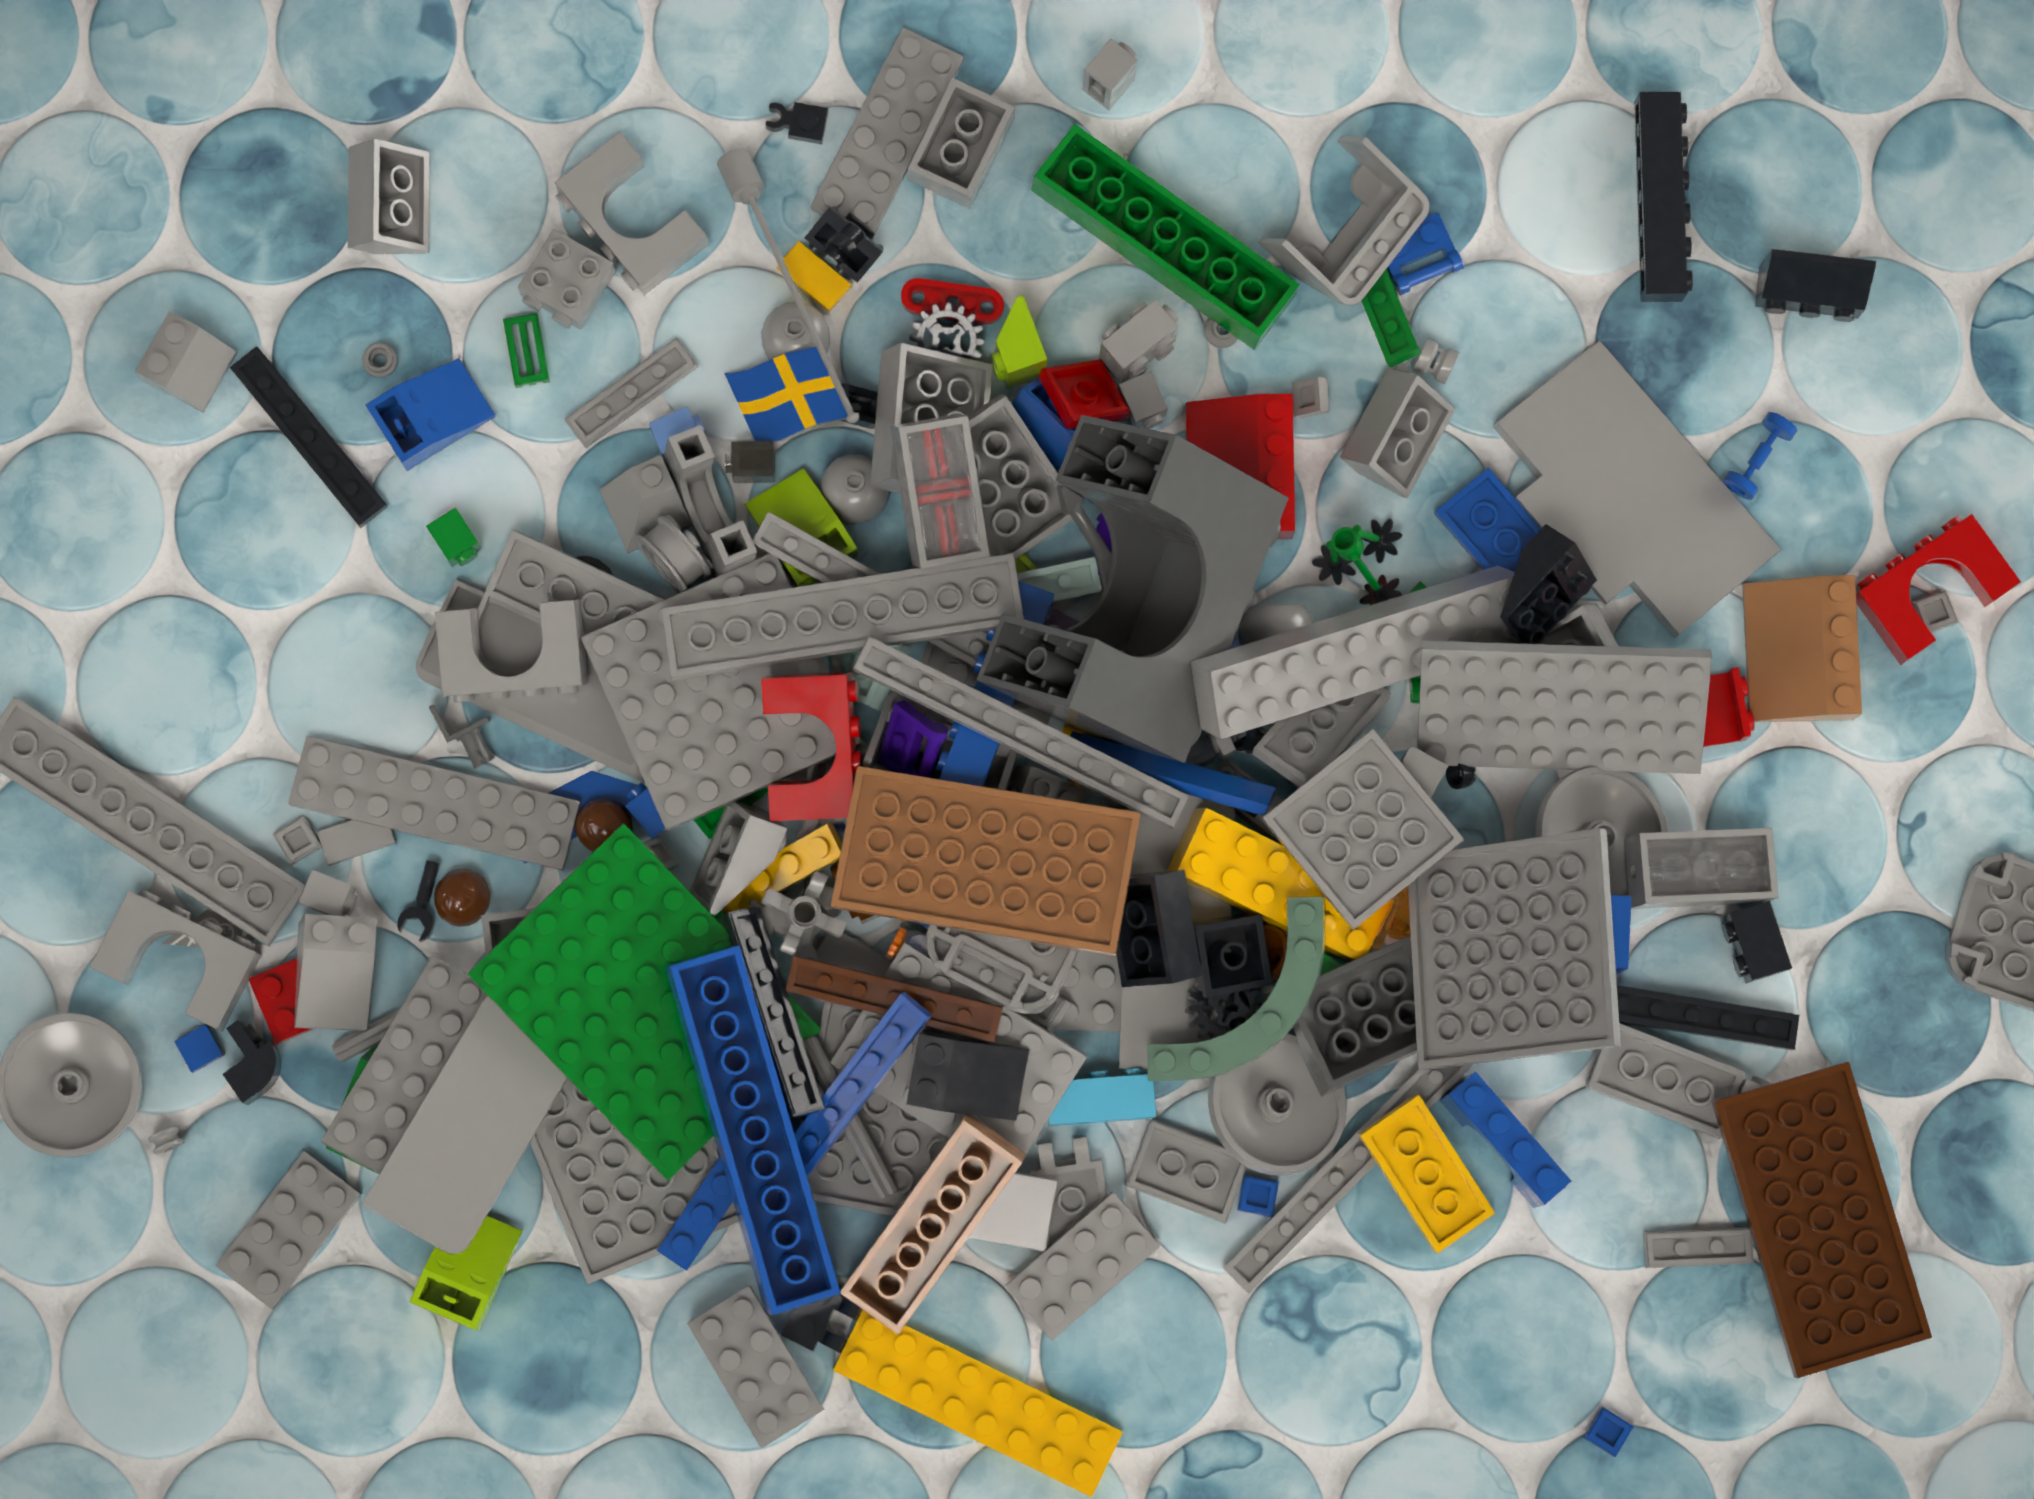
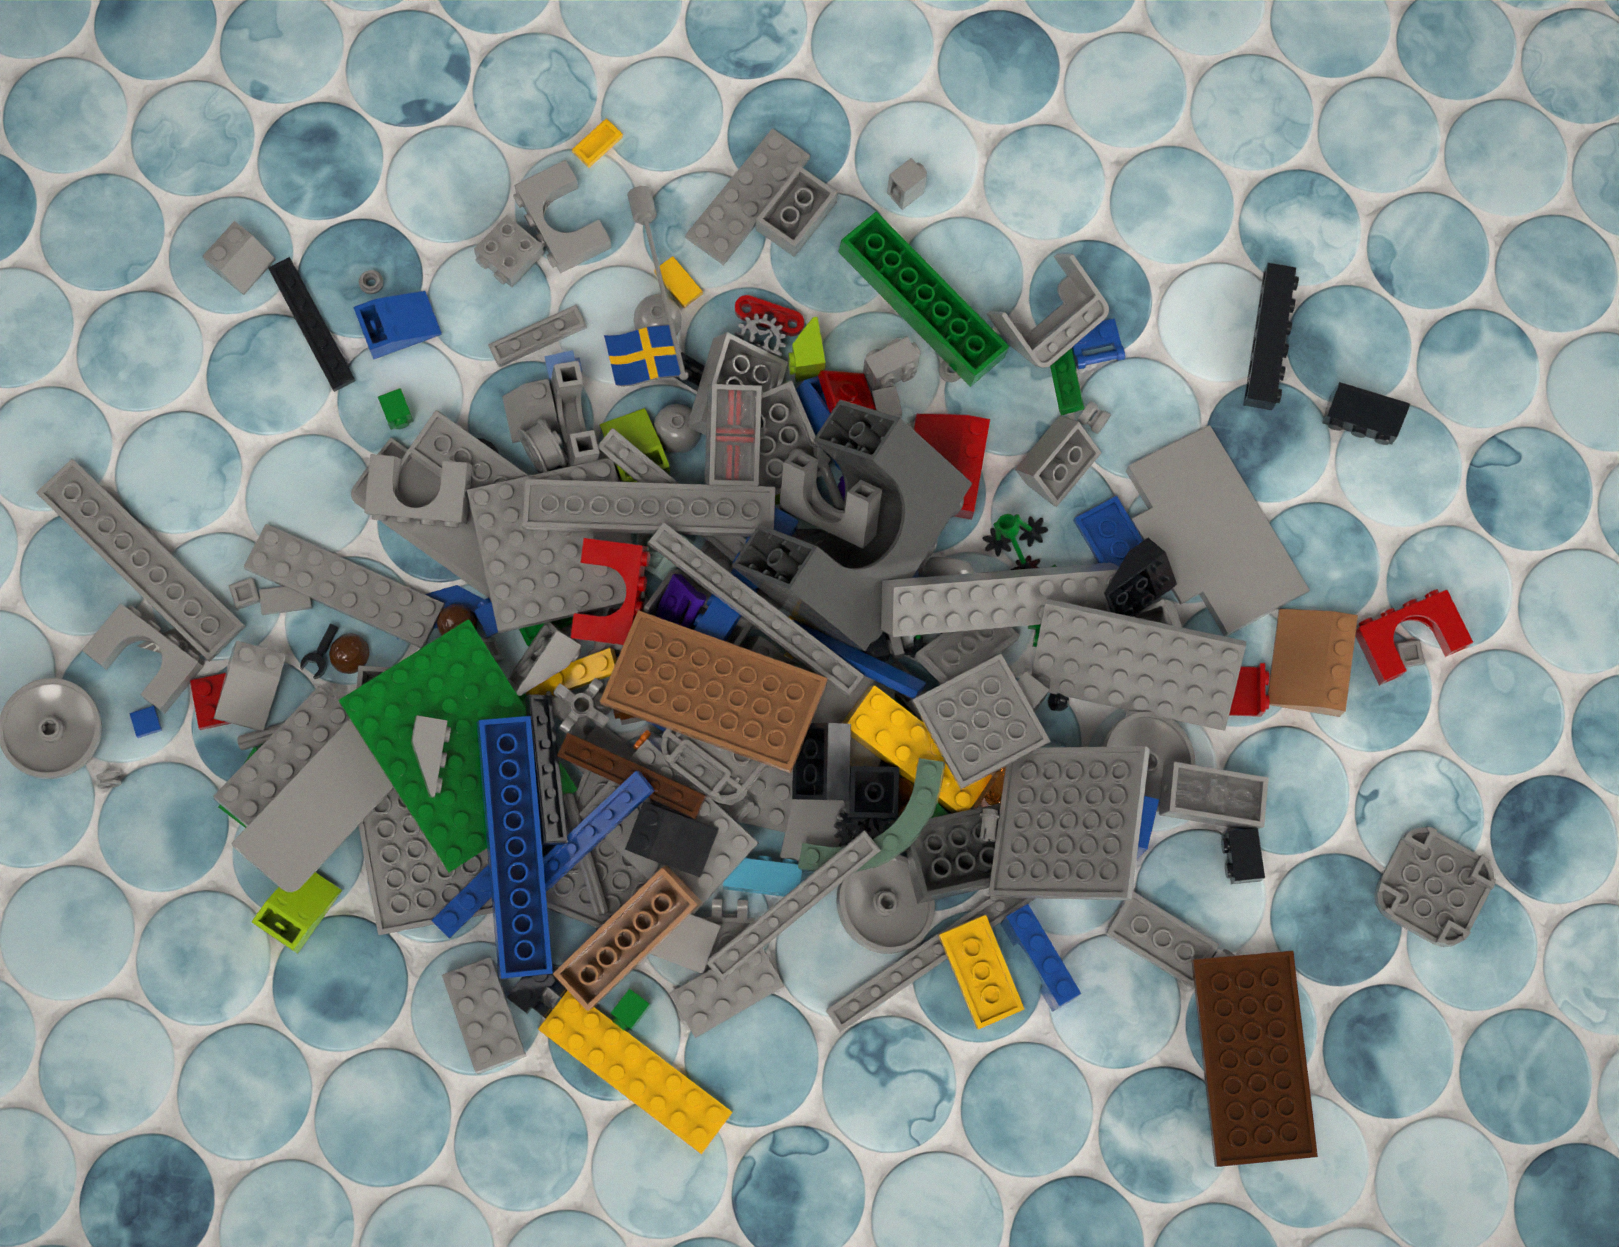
camera: 10 degrees right, 5 degrees down
(259, 1069) = (184, 743): black brick -> none
(288, 1230) = (179, 858): light grey plate -> none
(328, 895) = (257, 633): light grey brick -> none
(388, 198) = (399, 176): light grey slope -> none
(469, 736) = (377, 544): dark grey bracket -> none
(531, 378) = (472, 313): green tile -> none
(604, 1010) = (428, 744): none -> light grey slope
(658, 95) = (597, 143): none -> yellow tile
(751, 462) = (610, 396): clear smoke brick -> none
(804, 123) = (692, 179): black plate -> none
(846, 241) = (704, 261): black cylinder -> none
(954, 1320) = (629, 1010): none -> green brick
(1055, 563) = (803, 500): none -> light grey arch
(1152, 1135) = (793, 906): none -> light grey tile
(1186, 1171) = (817, 942): light grey tile -> none
(1258, 1196) = (860, 965): blue tile -> none
(1310, 397) = (1002, 425): light grey plate -> none
(1400, 970) = (988, 825): none -> light grey pin
(1608, 1432) = (1075, 1179): blue tile -> none
(1698, 1247) = (1163, 1062): light grey tile -> none
(1707, 1018) = (1197, 901): black plate -> none
(1779, 427) = (1323, 506): blue wheel -> none

